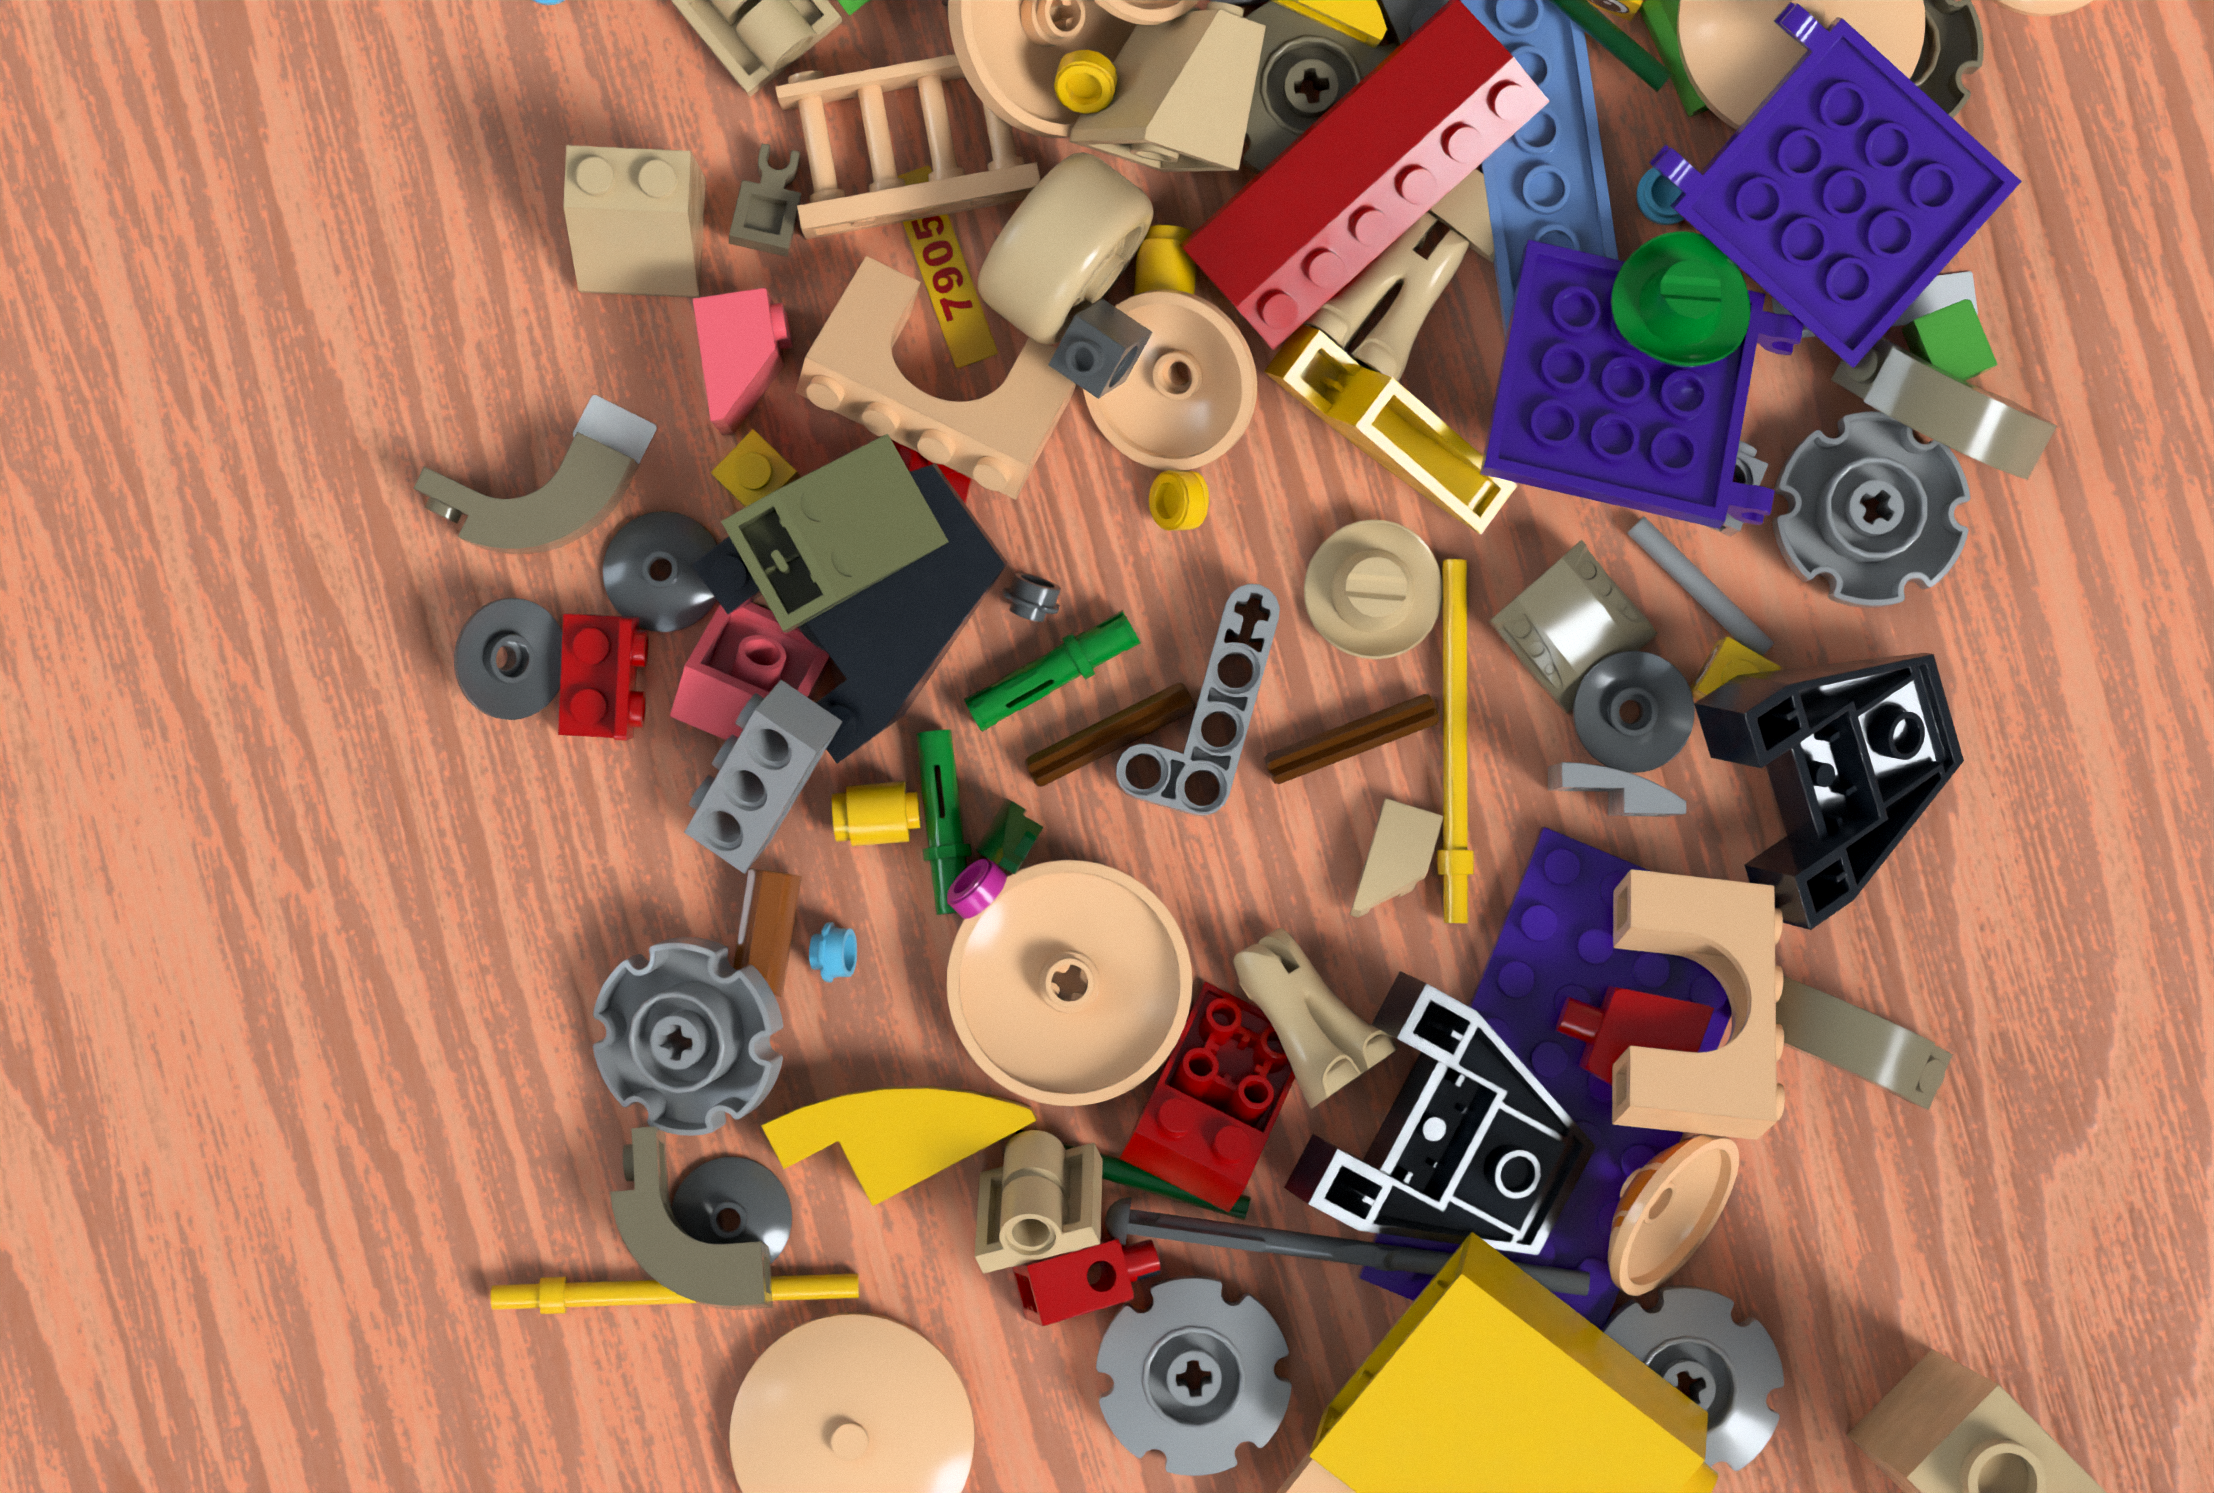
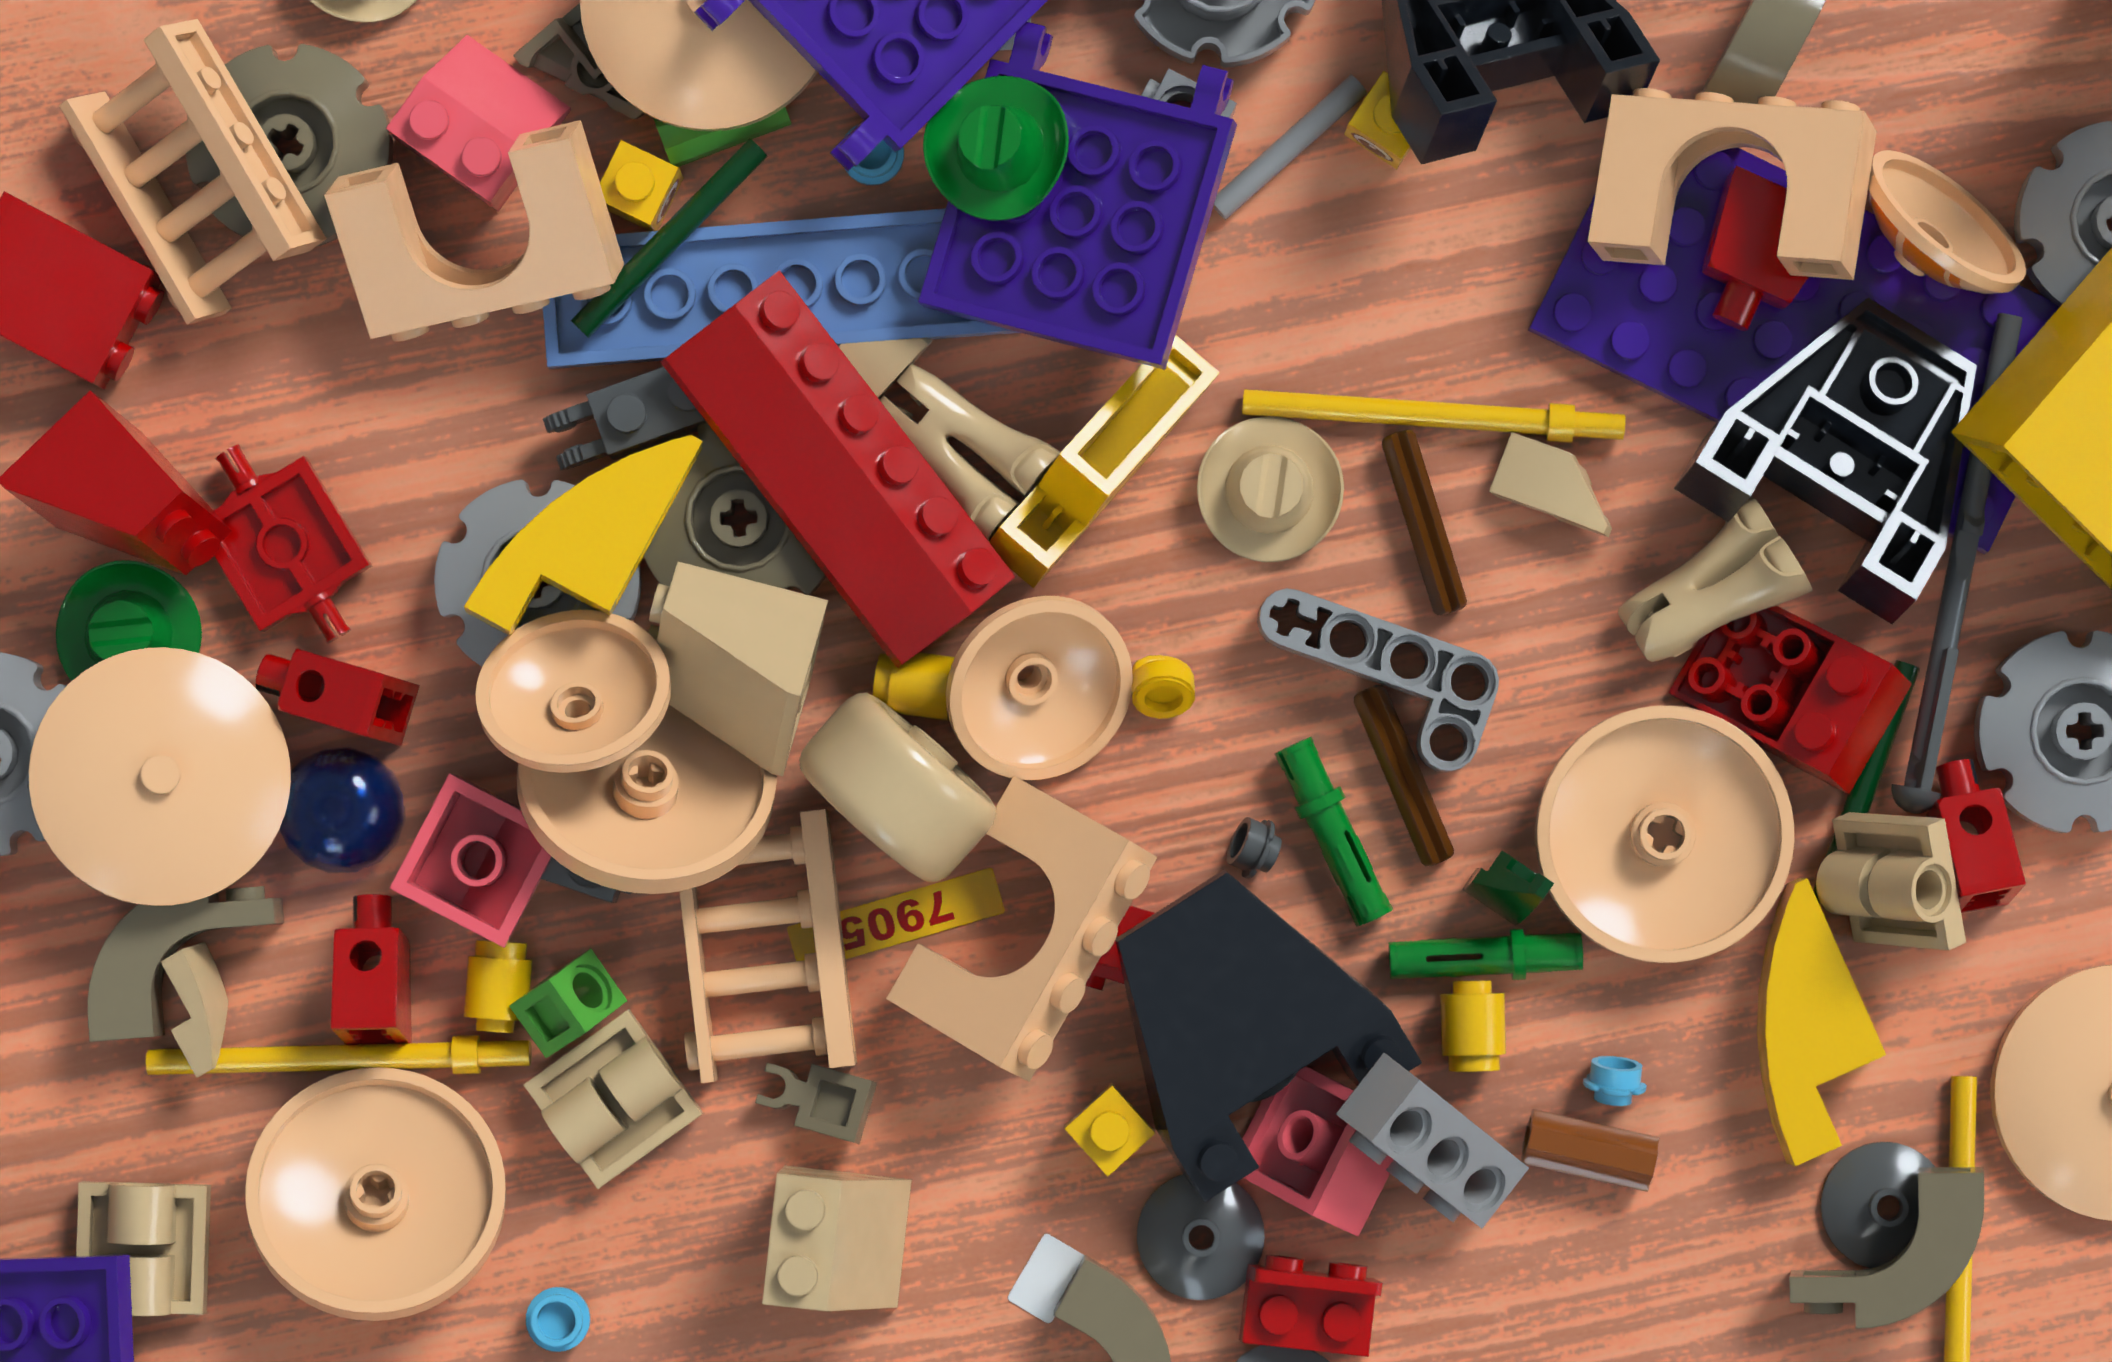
camera: 80 degrees left, 0 degrees up
(688, 1036) = (1669, 1203): light grey piece -> none
(740, 351) = (980, 1138): coral slope -> none
(834, 532) = (1188, 1047): olive slope -> none
(976, 888) = (1561, 925): dark pink tile -> none
(1085, 81) = (724, 754): yellow tile -> none
(1100, 348) = (1005, 757): dark grey brick -> none
(1570, 624) = (1323, 282): dark tan slope -> none
(1626, 791) = (1506, 239): light grey slope -> none
(1663, 717) = (1433, 200): dark grey dish -> none

